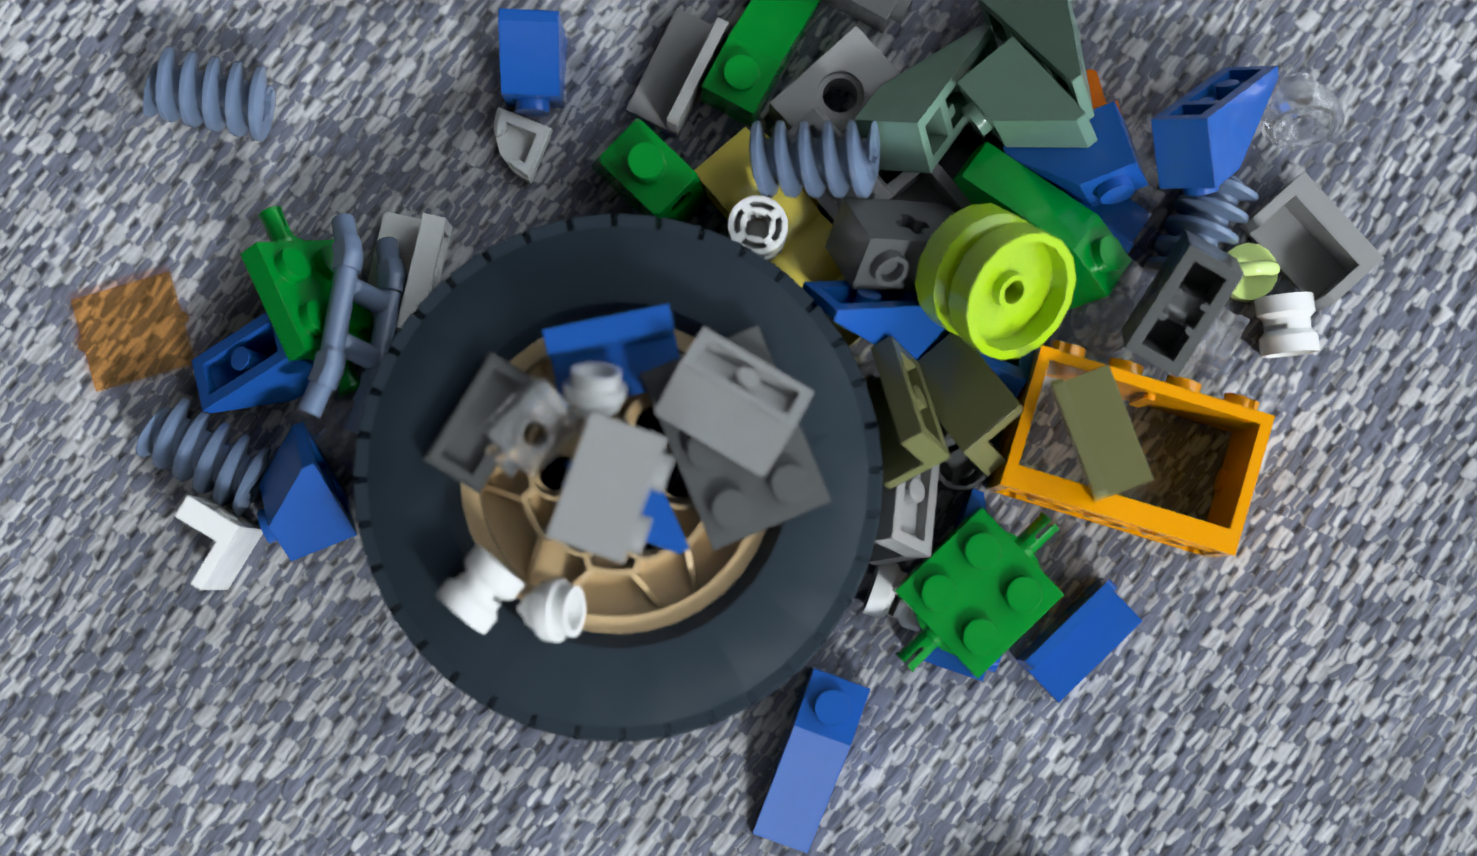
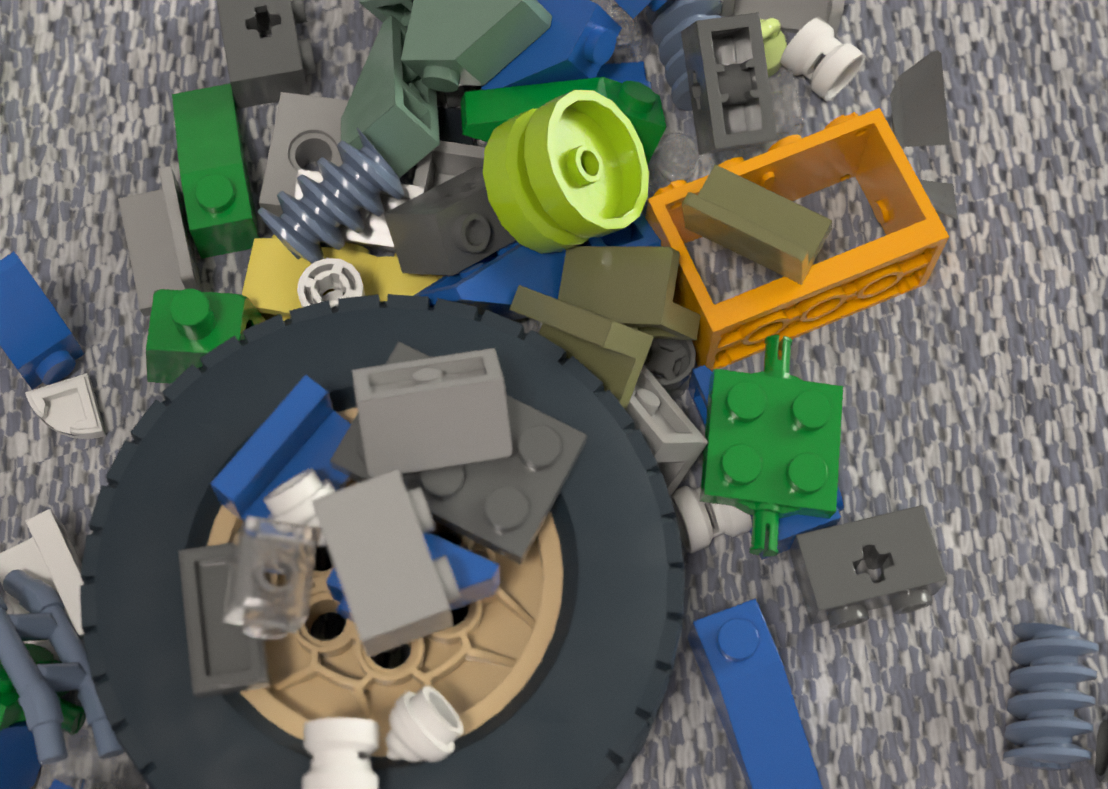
camera: 35 degrees left, 15 degrees down
(1009, 735) = (893, 541): none -> dark grey brick
(1079, 639) = (885, 428): blue panel -> none
(1320, 431) = (921, 120): none -> dark grey piece

